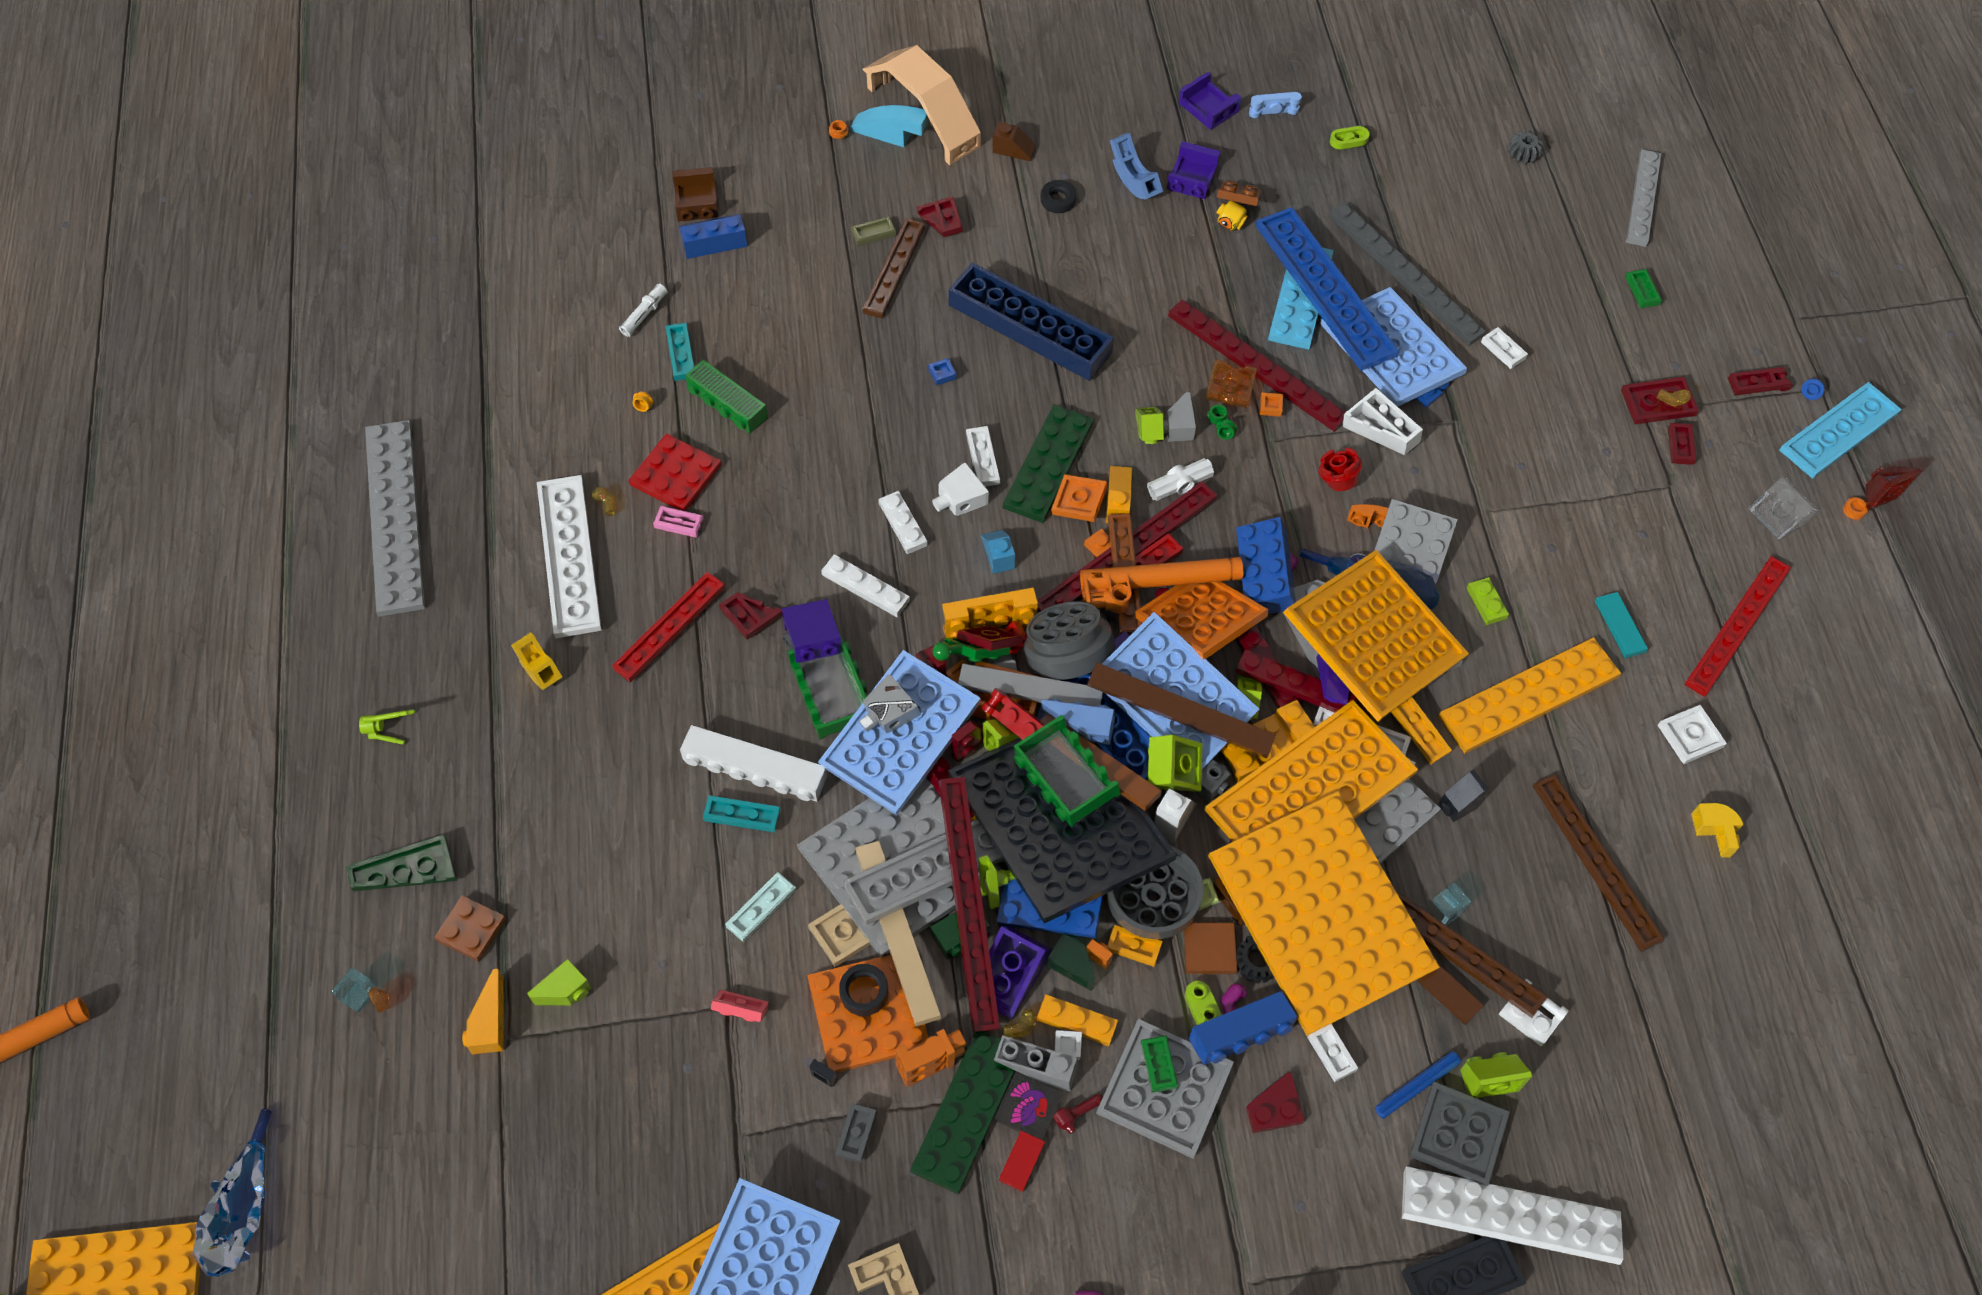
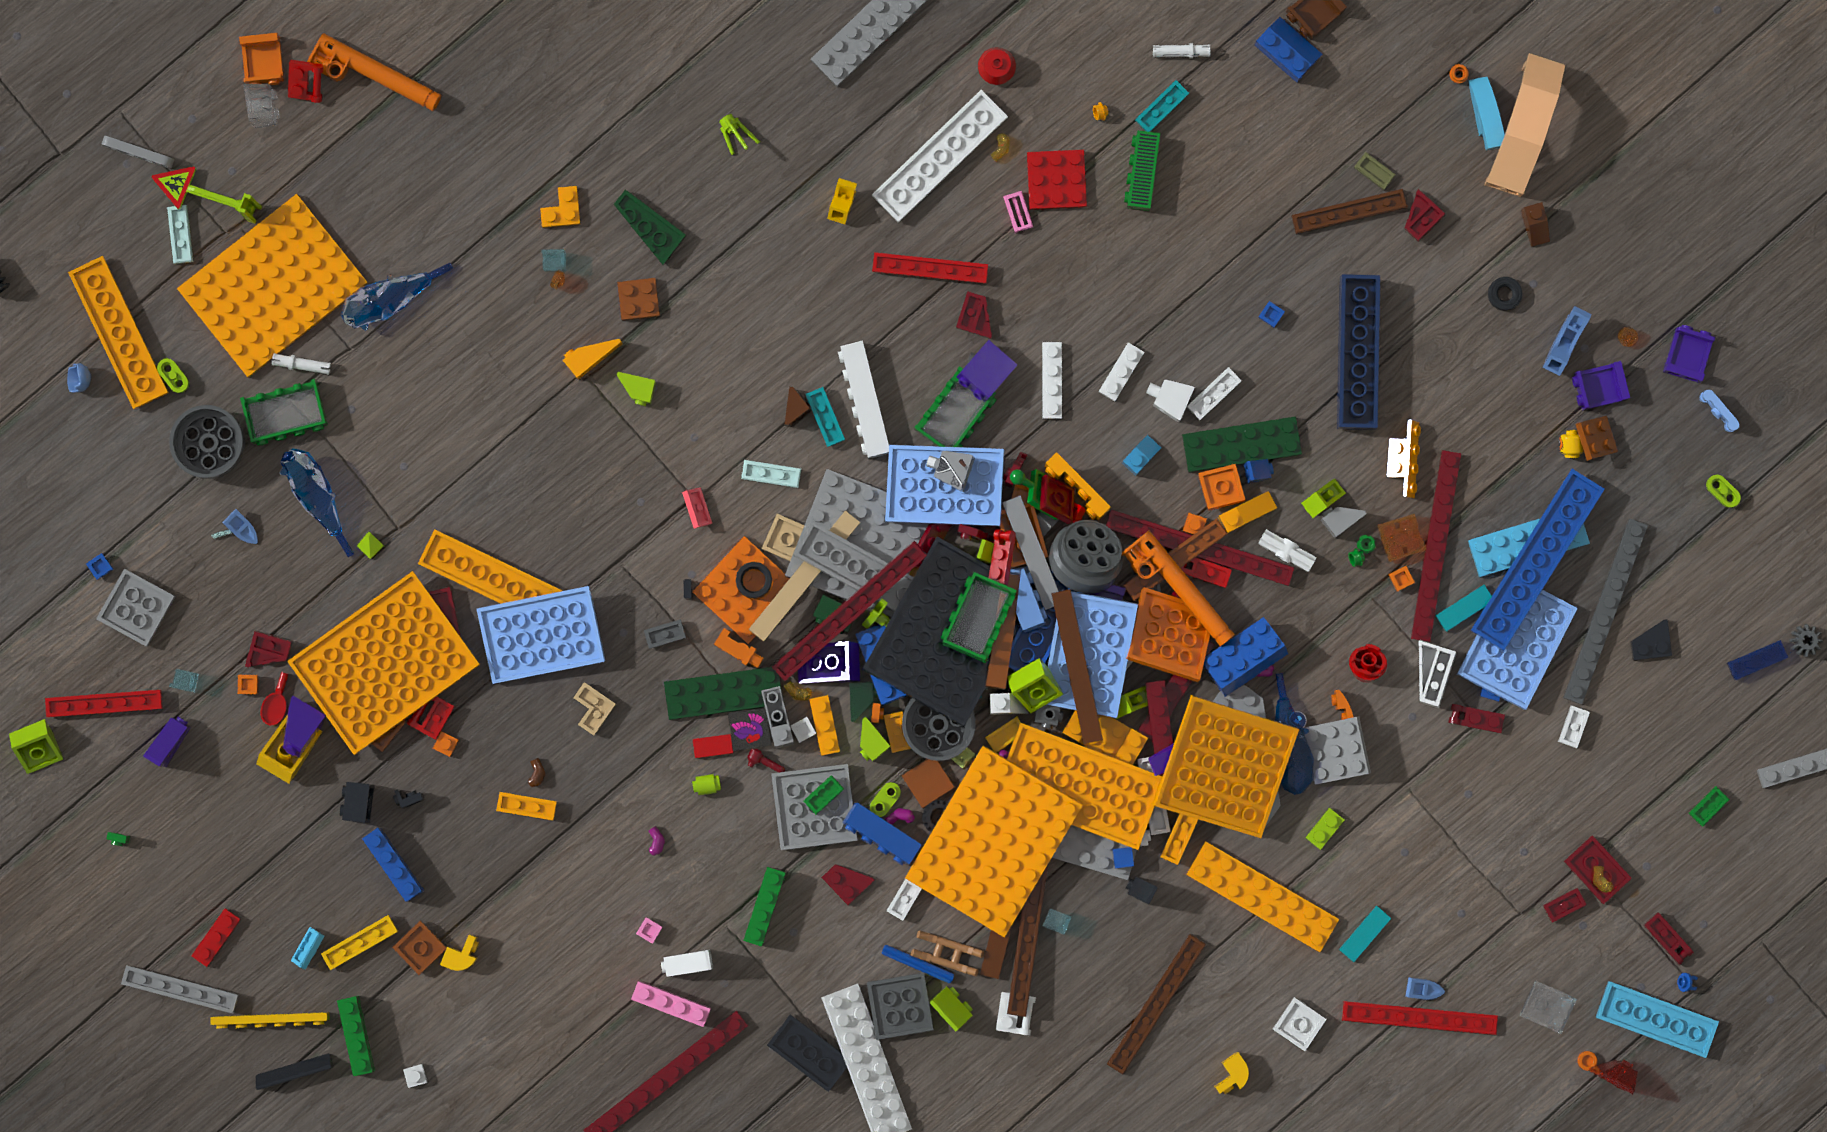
camera: 60 degrees right, 25 degrees up
(318, 948) = (566, 213): none -> light orange plate
(526, 458) = (996, 66): none -> red cone
(708, 835) = (795, 407): none -> reddish brown slope
(1063, 1195) = (706, 784): none -> lime brick
(1084, 460) = (1258, 470): none -> blue slope
(1128, 973) = (872, 742): none -> lime slope
(1155, 345) = (1403, 458): none -> bracket
(1162, 133) = (1627, 336): none -> clear orange tile
(1205, 837) = (1004, 735): none -> yellow tile
(1252, 1217) = (764, 906): none -> green brick
(1332, 372) = (1464, 608): none -> teal tile
(1415, 795) = (1123, 857): none -> blue tile
(1439, 1044) = (958, 949): none -> medium nougat piece
(1449, 418) = (1477, 718): none -> dark red plate
(1458, 254) = (1652, 643): none -> black wing
(1522, 189) = (1757, 660): none -> clear blue plate
(1709, 604) = (1423, 989): none -> medium blue plate

